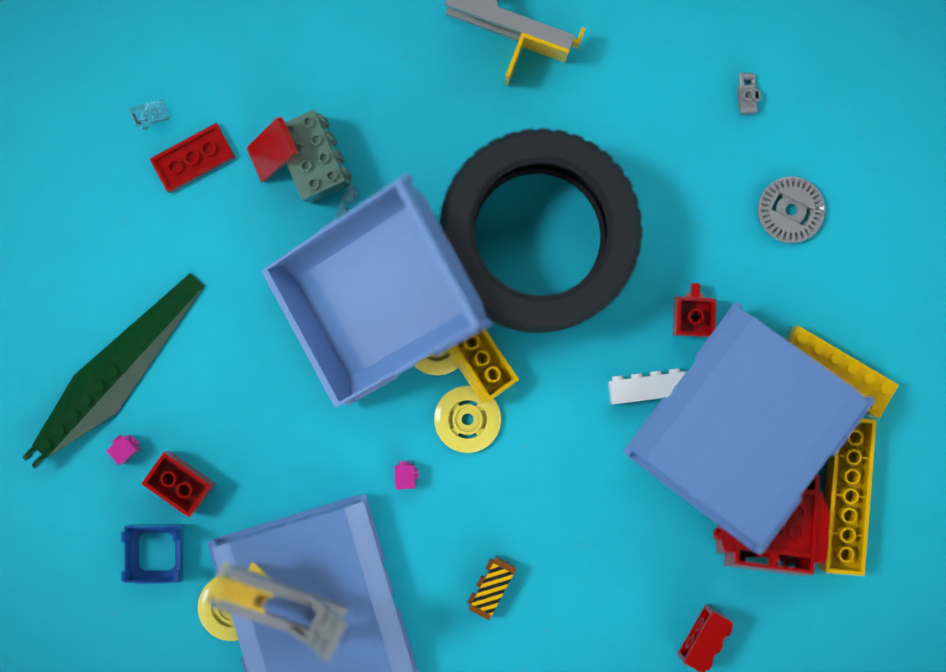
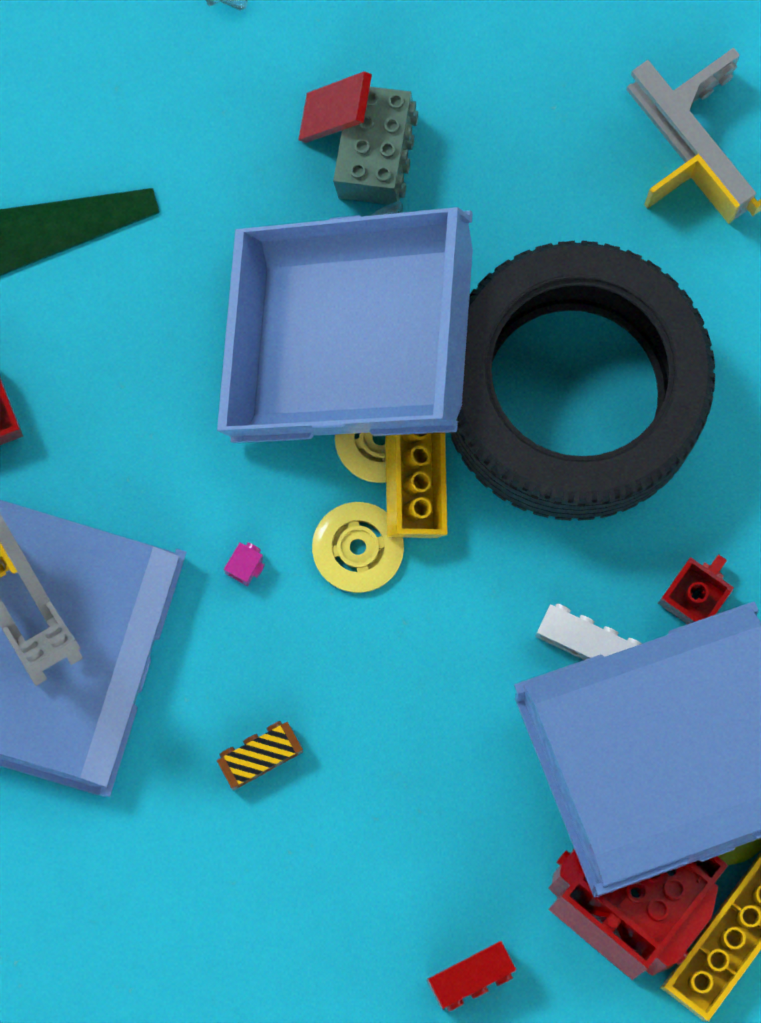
camera: 30 degrees right, 10 degrees down
(192, 157) = (239, 66): red tile -> none

